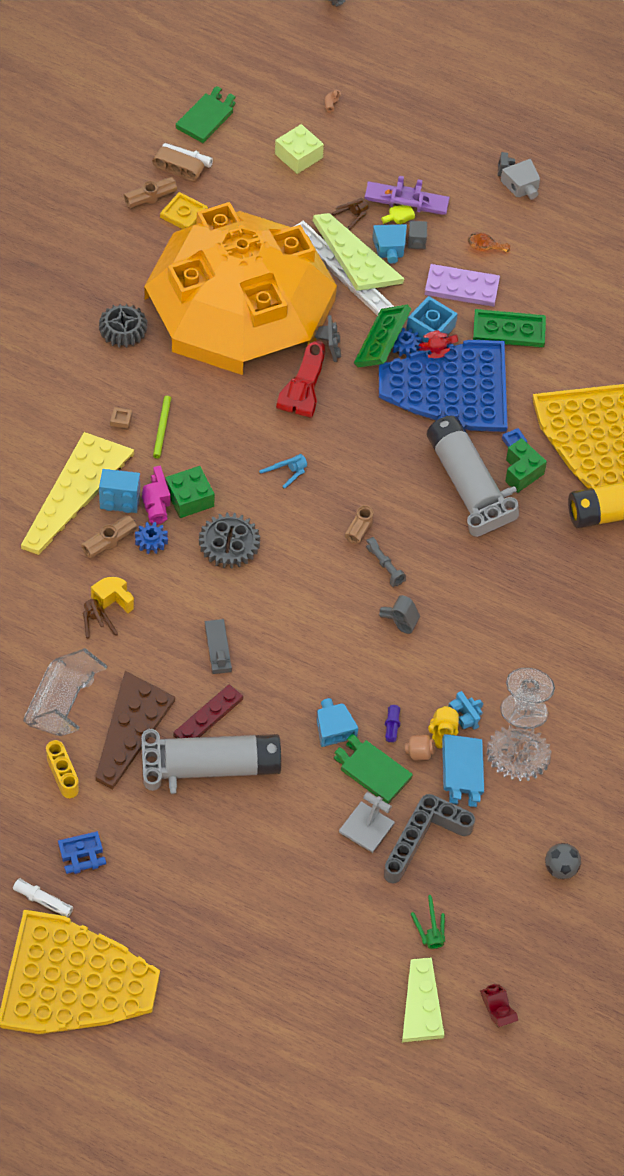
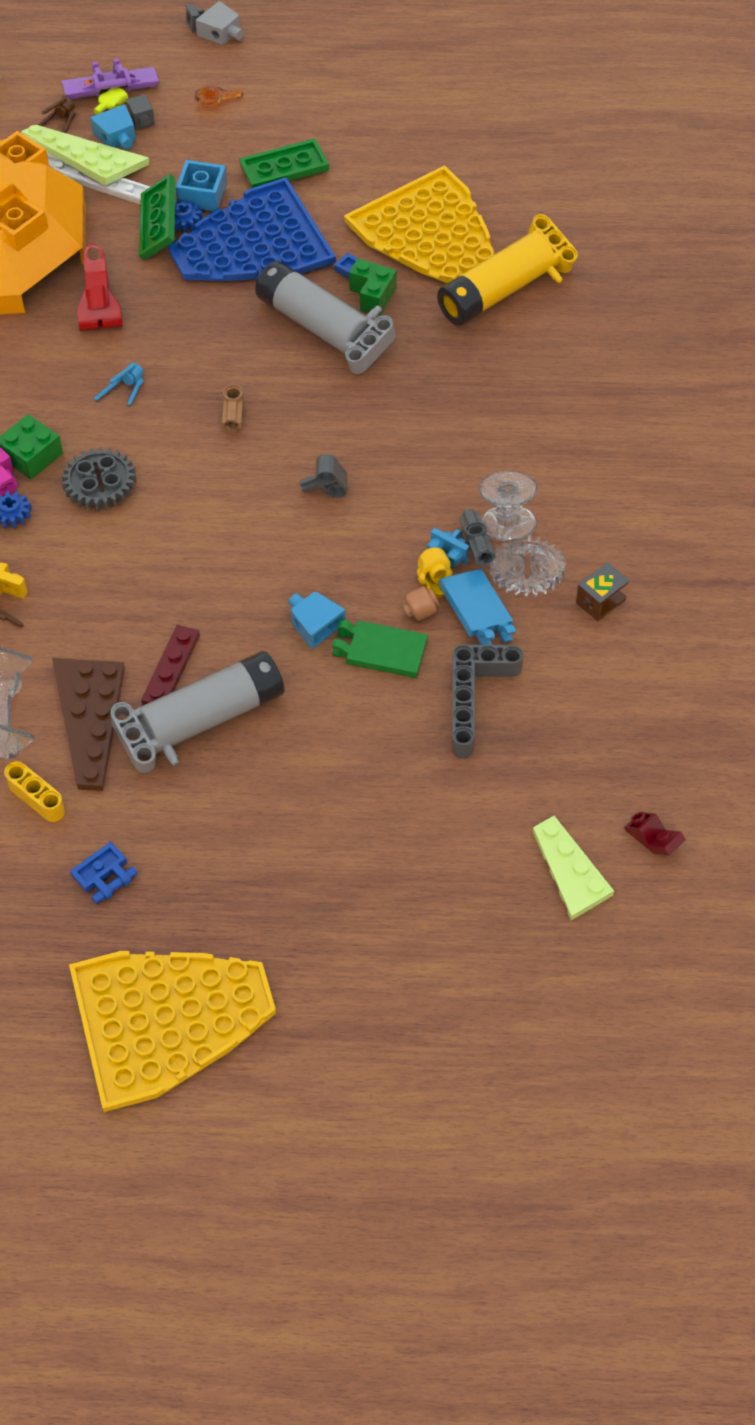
camera: 20 degrees left, 0 degrees up
(37, 895) = (83, 942): white pin -> none
(218, 646) = (143, 592): dark grey hinge -> none
(332, 335) = (98, 236): dark grey plate -> none
(366, 824) = (408, 707): light grey plate -> none
(392, 723) = (377, 591): dark purple axle -> none
(397, 577) = (300, 443): dark grey piece -> none
(434, 938) = (544, 792): green plant -> none
(437, 343) = (219, 202): red piece -> none
(462, 285) = (212, 142): lavender plate -> none
(491, 713) = (477, 537): none -> dark grey piece
(563, 861) = (637, 654): dark grey piece -> none
(564, 798) = (601, 591): none -> piece

